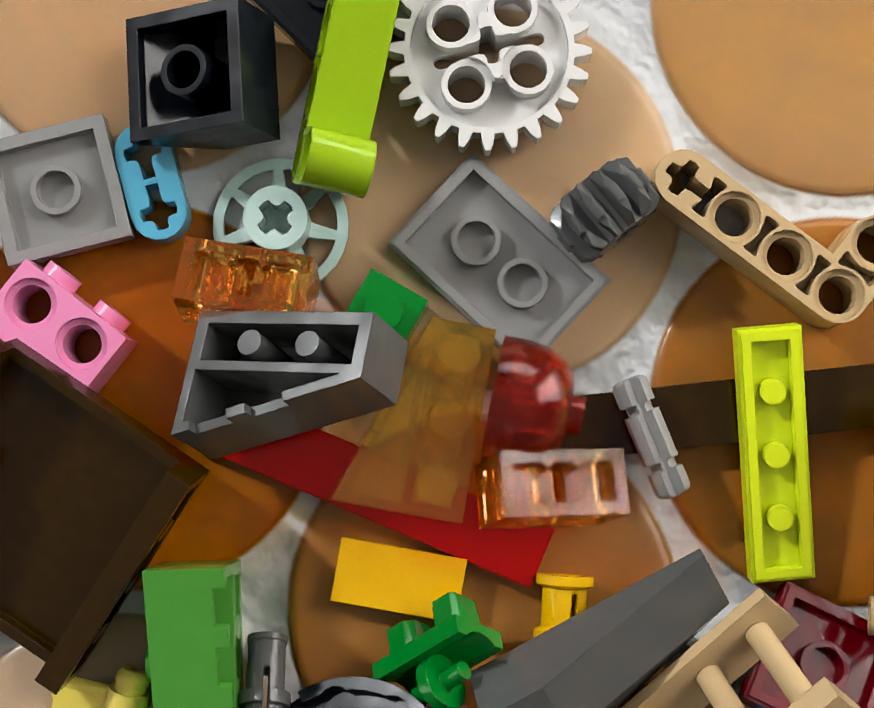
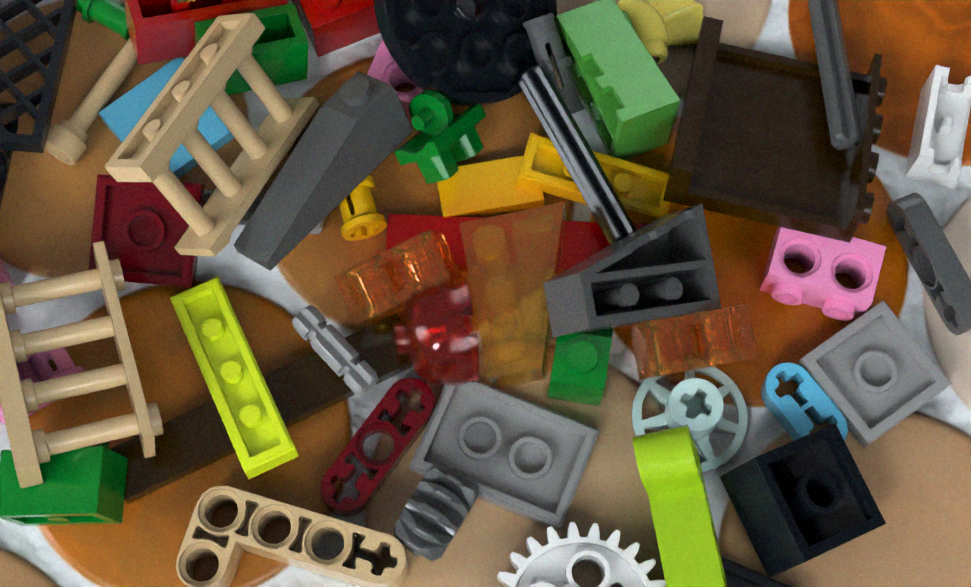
camera: 160 degrees right, 15 degrees down
(273, 542) = (637, 185): none -> yellow tile
(285, 571) = (576, 154): none -> black axle
(665, 276) = (344, 471): none -> dark red beam

